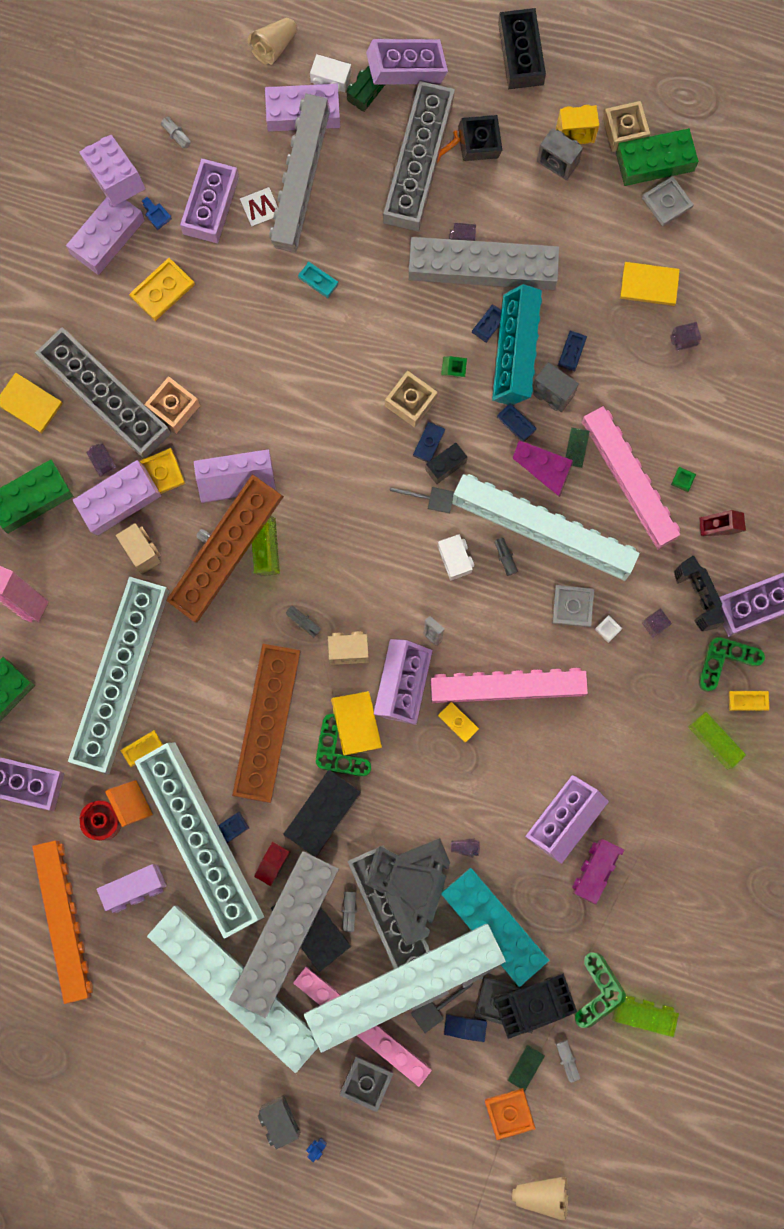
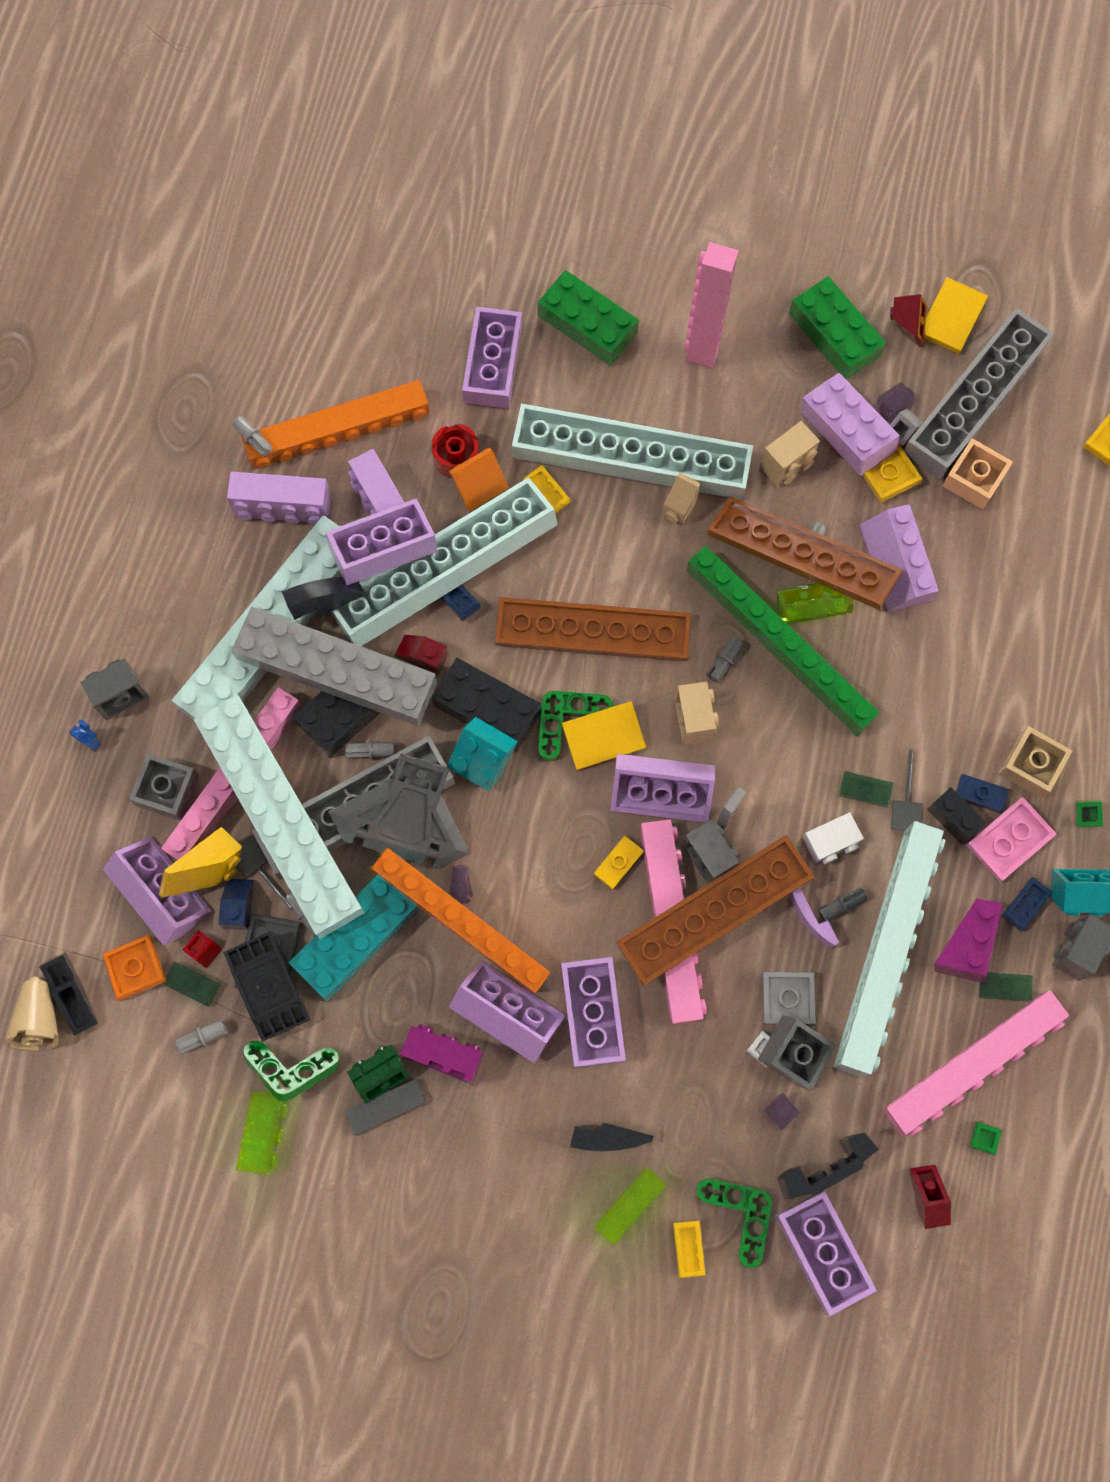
camera: 85 degrees right, 5 degrees down
(26, 436) = (910, 317): none -> dark red slope
(68, 993) = (252, 436): none -> light grey axle
(124, 453) = (906, 425): none -> light grey brick
(126, 973) = (279, 497): none -> lavender brick
(166, 640) = (681, 499): none -> tan slope
(182, 887) = (381, 541): none -> lavender brick
(221, 940) = (321, 595): none -> black slope
(292, 576) = (782, 641): none -> green brick
(365, 820) = (481, 754): none -> teal brick
(418, 527) = (866, 789): none -> clear green plate
(434, 1045) = (203, 866): none -> yellow slope
(449, 1093) = (138, 876): none -> lavender slope
(460, 650) = (710, 851): none -> flat silver brick
(467, 425) = (1011, 839): none -> bright pink plate
(480, 591) = (822, 931): none -> lavender slope
(498, 849) = (459, 920): none -> orange brick
(498, 1058) = (202, 949): none -> red slope
(506, 652) = (714, 910): none -> dark orange plate
(525, 1168) = (69, 993): none -> black slope
(574, 753) = (593, 1013): none -> lavender brick
(607, 922) = (378, 1073): none -> dark green brick
(616, 605) = (796, 1052): none -> dark grey brick
(631, 919) = (385, 1107): none -> dark grey tile
(668, 751) = (609, 1139): none -> black slope

